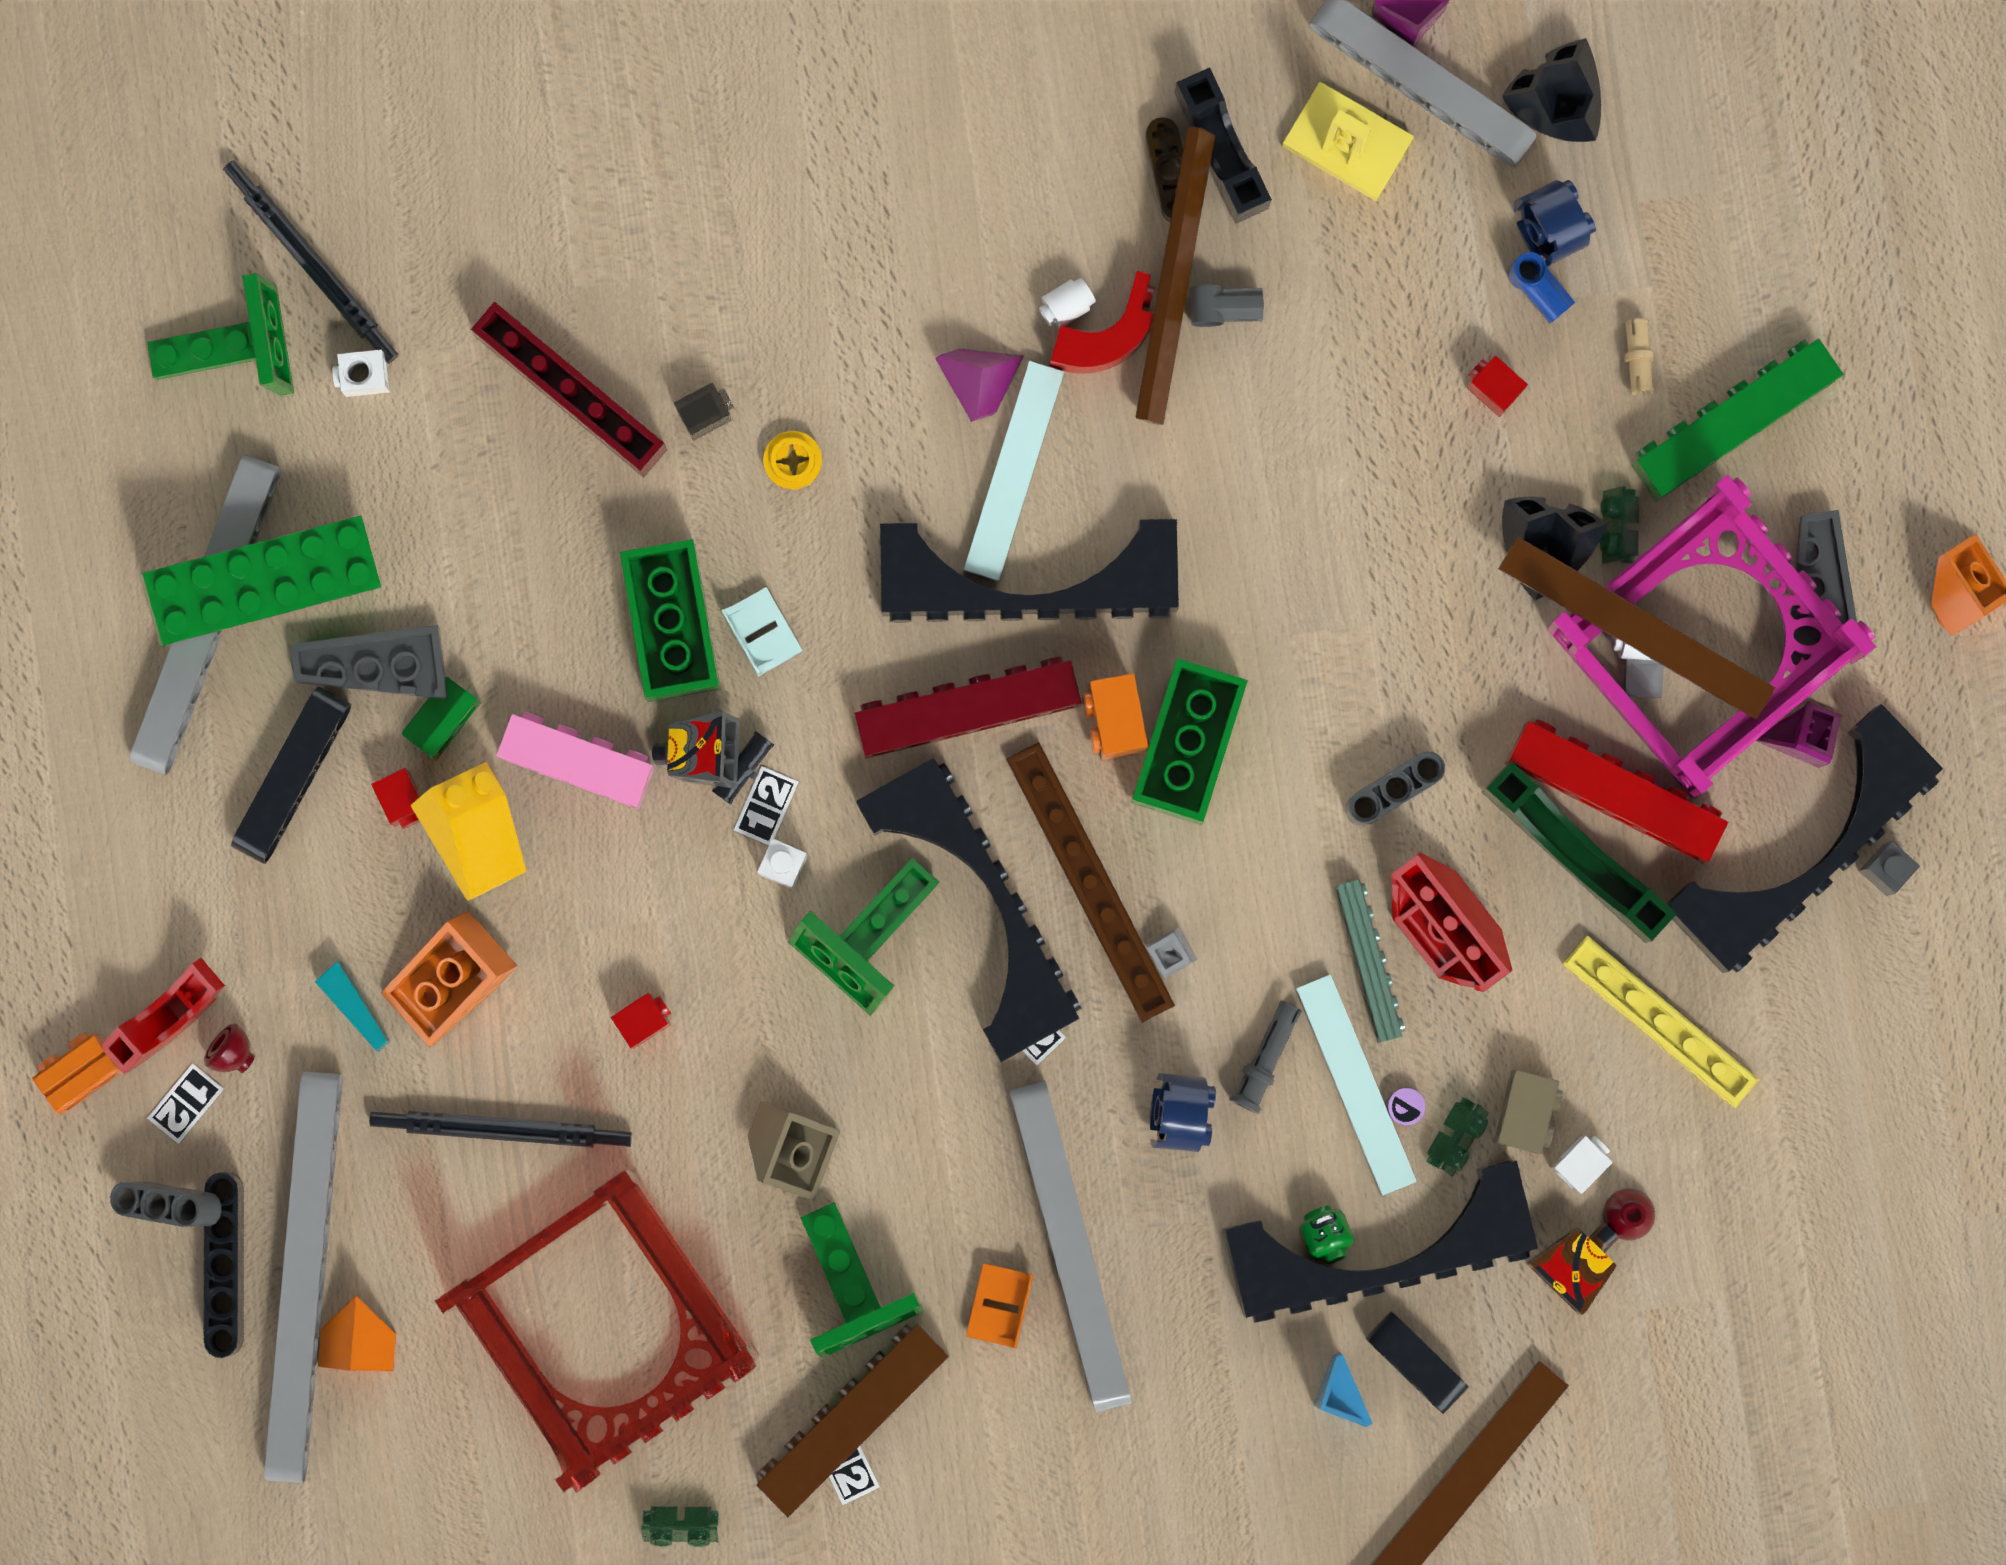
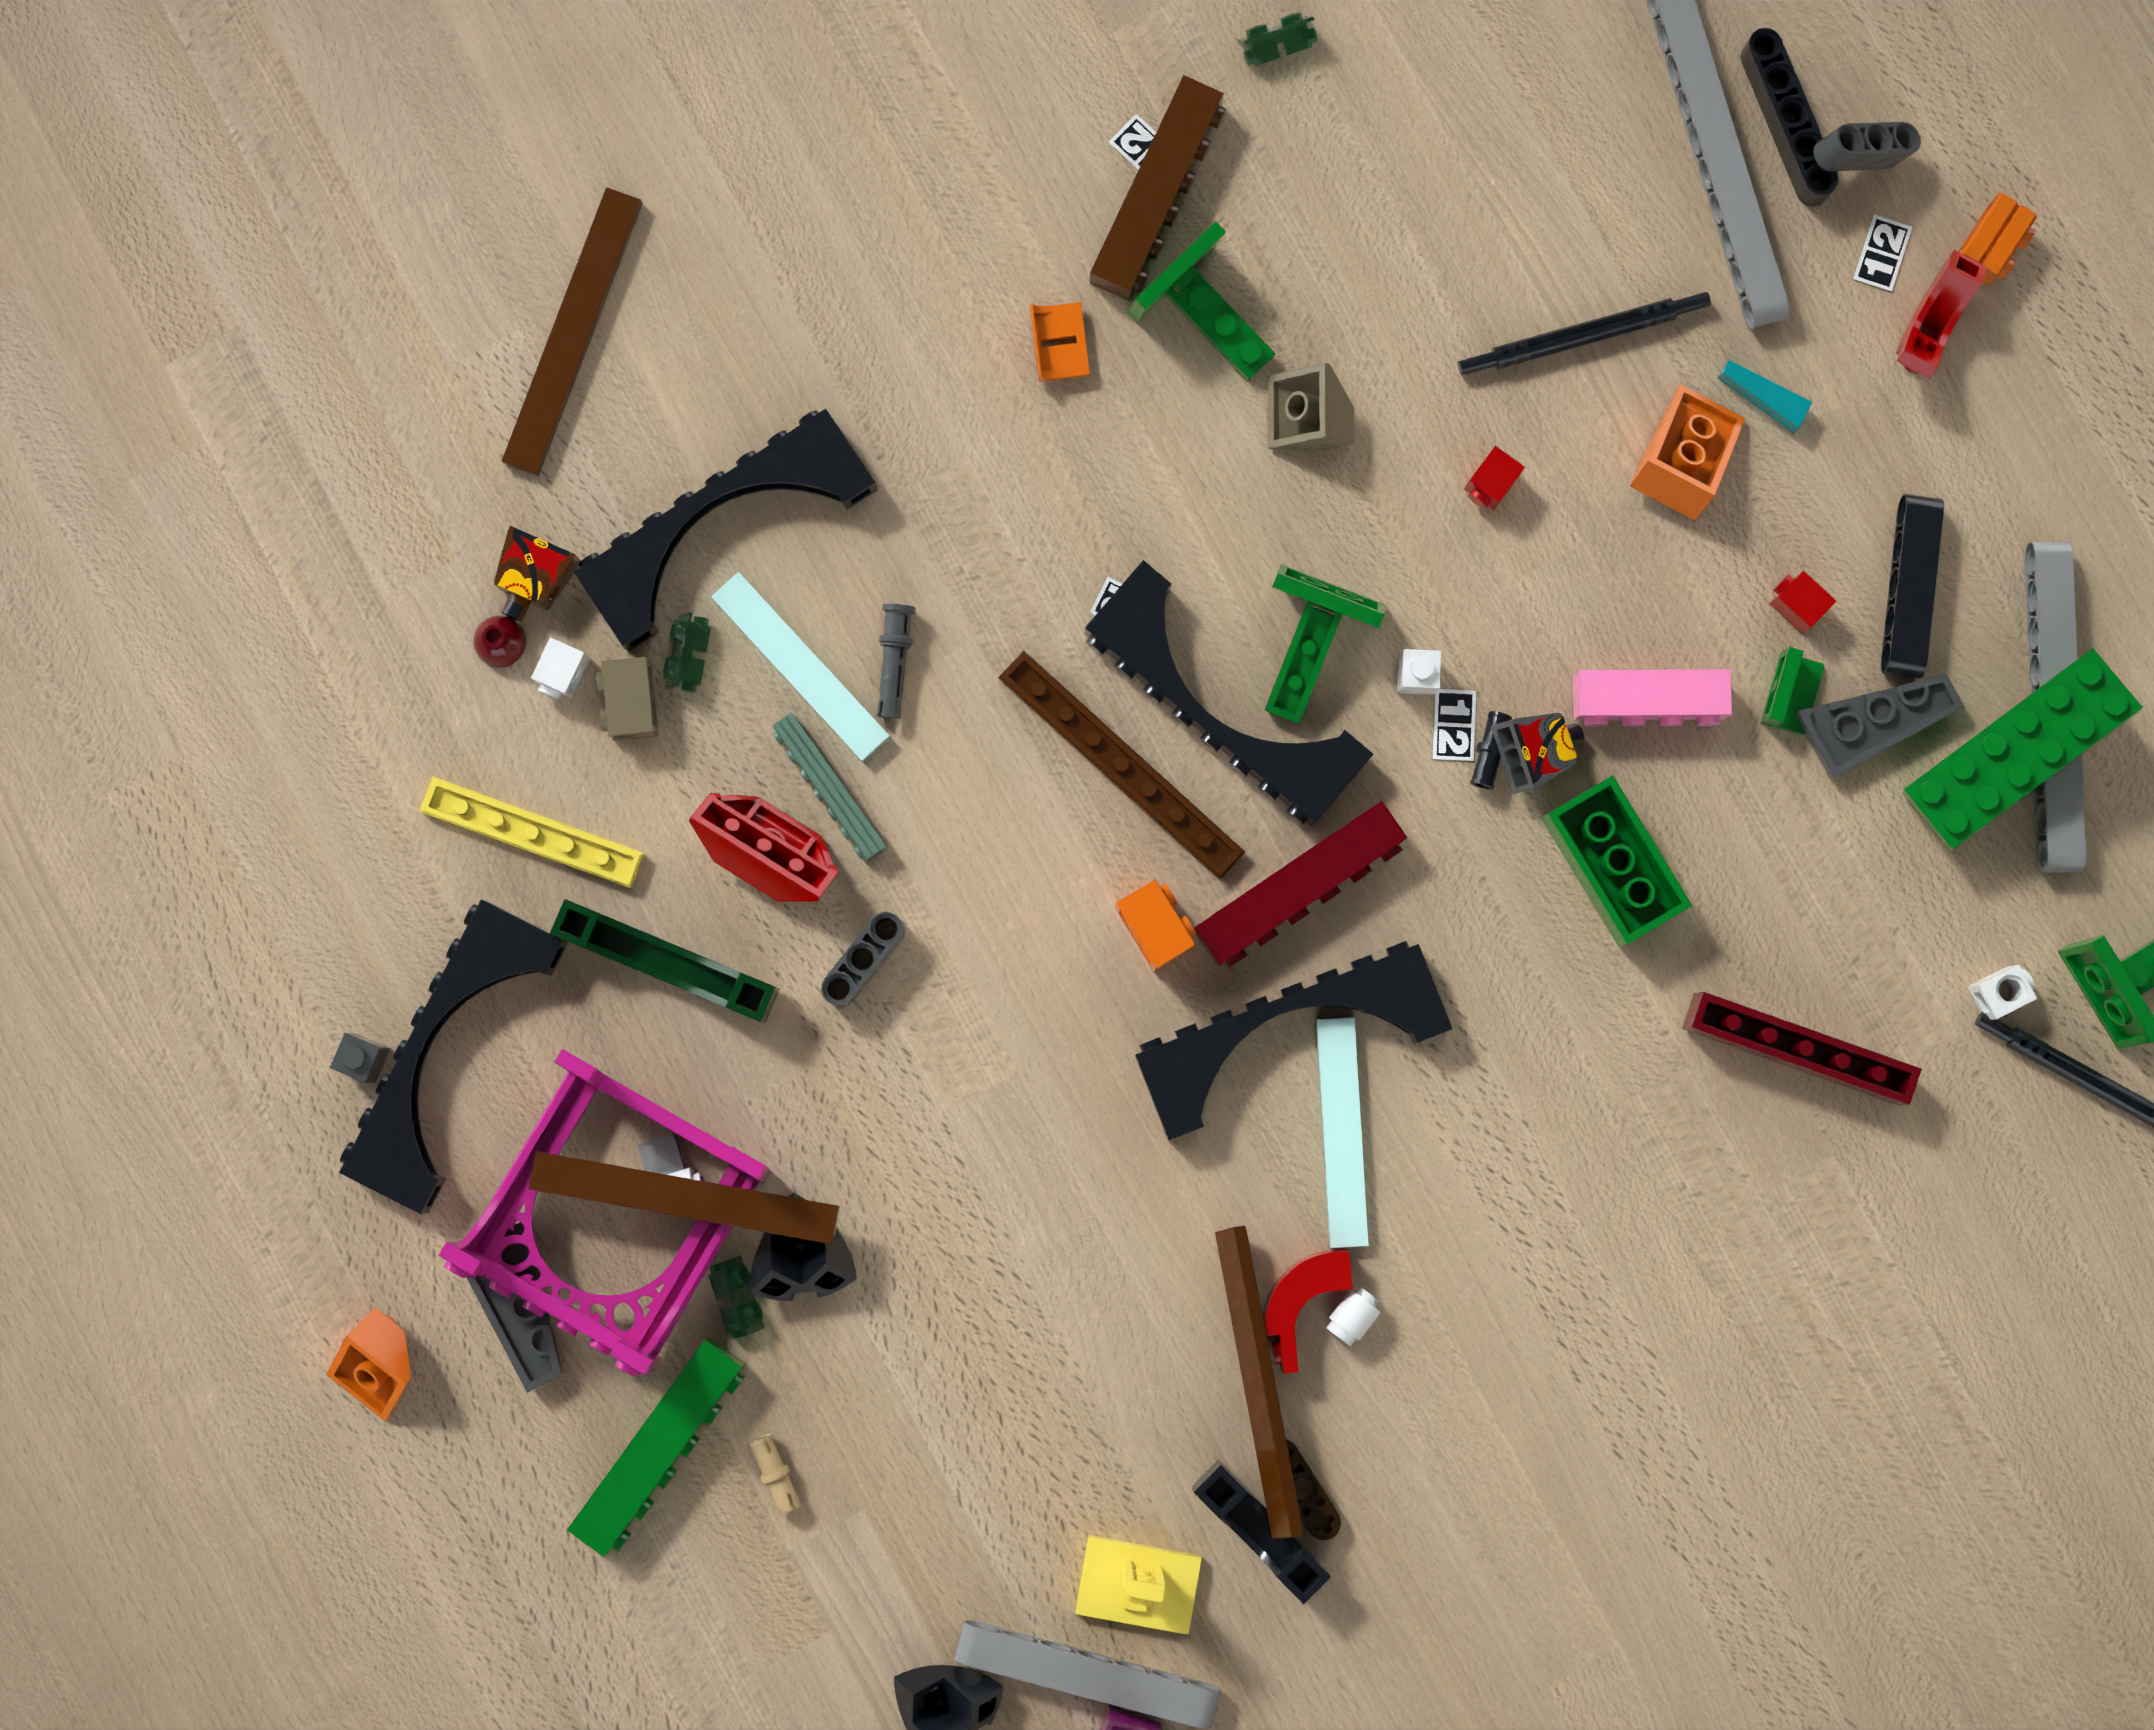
camera: 165 degrees right, 0 degrees up
(229, 1051) = (1863, 310): dark red brick -> none
(357, 1340) = (1637, 92): orange slope -> none
(472, 830) = (1723, 592): yellow slope -> none
(575, 1452) = (1405, 66): clear red arch -> none
(704, 410) = (1662, 1078): clear smoke brick -> none
(754, 614) = (1539, 897): light aqua piece -> none
(779, 449) = (1575, 1069): yellow gear -> none
(979, 378) = (1410, 1209): magenta slope -> none
(1070, 1246) = (1014, 418): light grey beam -> none
(1171, 953) = (1019, 725): light grey tile -> none
(1181, 1112) = (956, 575): dark blue brick -> none
(1189, 741) = (1077, 929): green brick -> none
(1214, 305) = (1206, 1369): dark grey piece -> none
(1326, 1234) = (778, 515): green head -> none
(1340, 1394) = (712, 370): dark azure slope -> none
(1406, 1106) = (746, 664): lavender tile -> none
(1417, 1362) = (651, 429): black beam -> none
(1495, 384) = (905, 1392): red brick -> none
(1543, 290) = (892, 1506): blue piece -> none
(1554, 221) = (906, 1577): dark blue brick -> none
(1617, 792) = (648, 1034): red brick -> none
(1806, 735) = (482, 1160): magenta slope -> none

